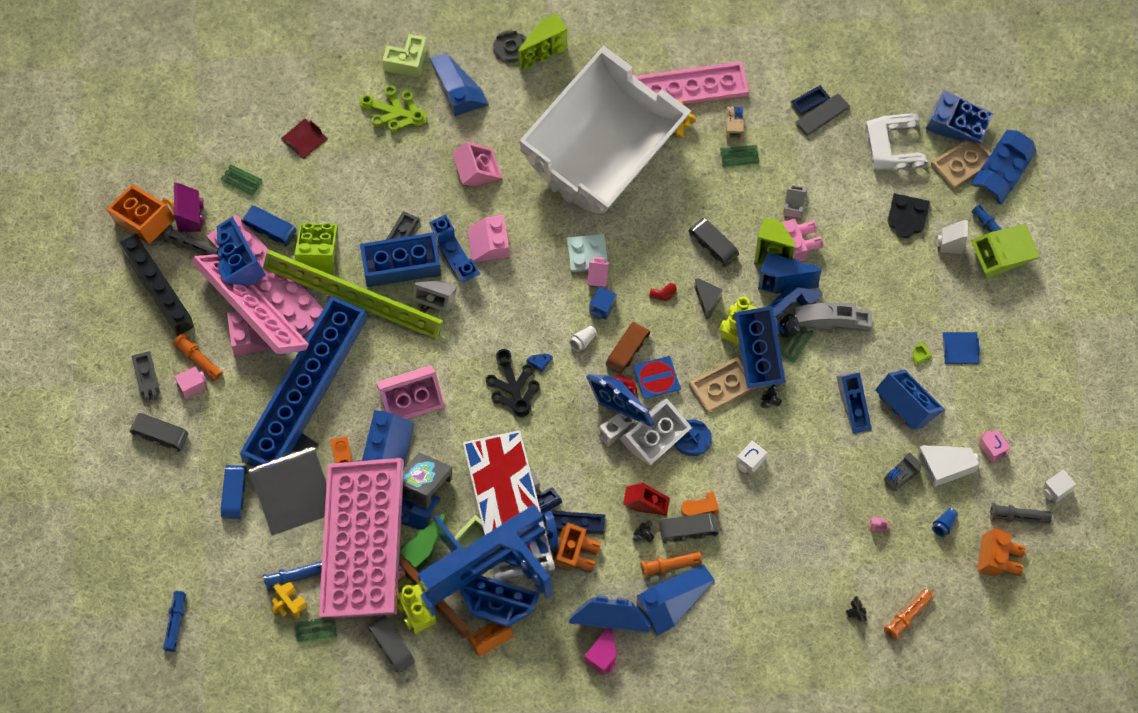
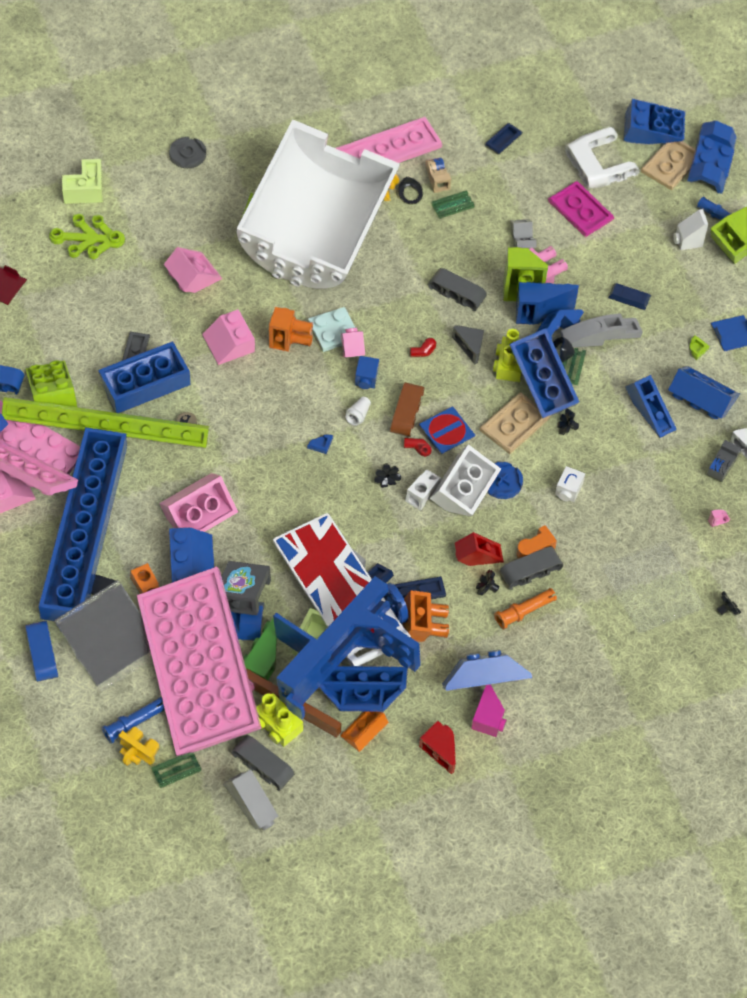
camera: 20 degrees left, 5 degrees down
(176, 613) = (18, 791): blue pin -> none
(369, 675) = (251, 799): none -> light grey slope
(434, 294) = (191, 403): light grey slope -> none
(445, 237) = (194, 358): blue slope -> none
(458, 86) = (147, 202): blue wedge -> none
(513, 387) = (302, 475): black plant -> none
(540, 245) = (286, 330): none -> orange brick
(548, 35) = (224, 137): lime slope -> none
(550, 670) = (440, 745): none -> red slope
(588, 407) = (387, 475): none -> black plant
(617, 397) = (421, 458): blue wedge -> none
(671, 599) = (541, 640): blue wedge -> none
(703, 124) = (410, 182): none -> black piece
(822, 114) = (520, 149): dark grey tile -> none
(859, 188) = (581, 209): none -> dark pink tile
(874, 287) = (629, 296): none -> dark blue tile
(908, 215) = (636, 222): black plate -> none

